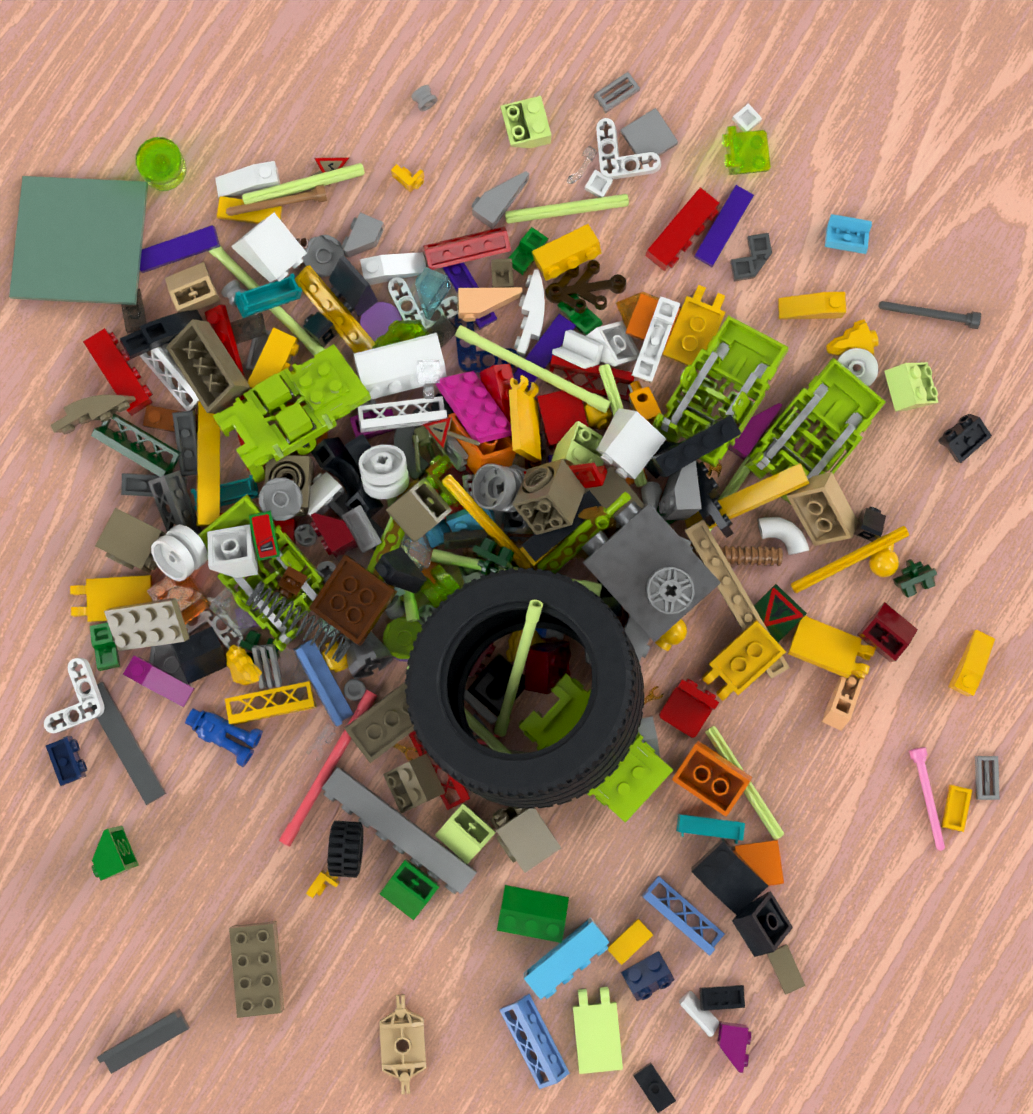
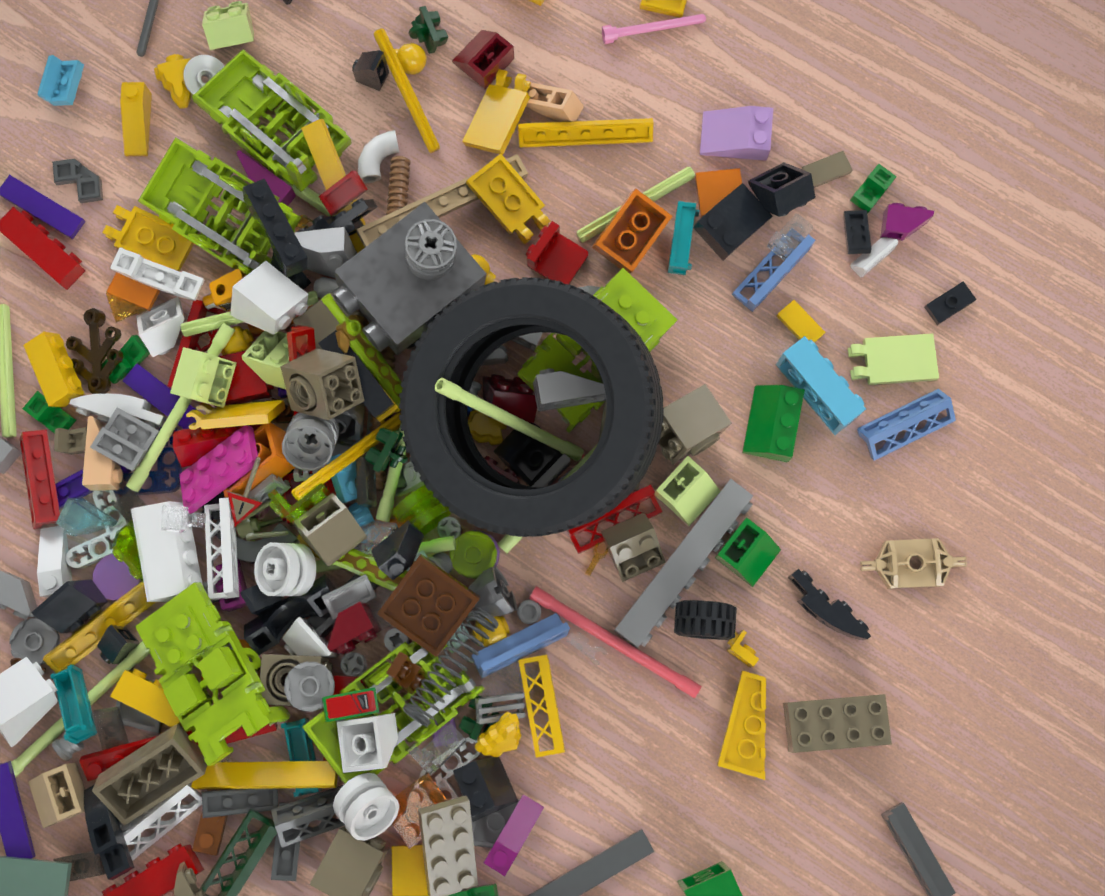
camera: 85 degrees left, 5 degrees down
(213, 729) = (570, 771): blue piece -> none
(248, 886) = (744, 738): none -> yellow wing
(354, 967) = (834, 615): none -> black slope
(382, 724) = (564, 572): dark tan plate -> none
(500, 322) = (124, 439): none -> light grey slope
(544, 712) = (564, 390): none -> light grey slope
(556, 388) = (203, 377): none -> yellowish green slope
(579, 350) = (163, 356): white panel -> none
(648, 976) = (836, 305): dark blue bracket -> none
(714, 932) = (790, 236): none -> clear bracket
(739, 505) = (343, 192): none -> red tile
(768, 1015) = (873, 188): none -> green slope
(778, 612) = (458, 160): dark green piece -> none
(814, 733) = (585, 132): none -> yellow tile
(819, 880) = (737, 132): none -> lavender slope
(824, 510) = (353, 111): tan slope -> none

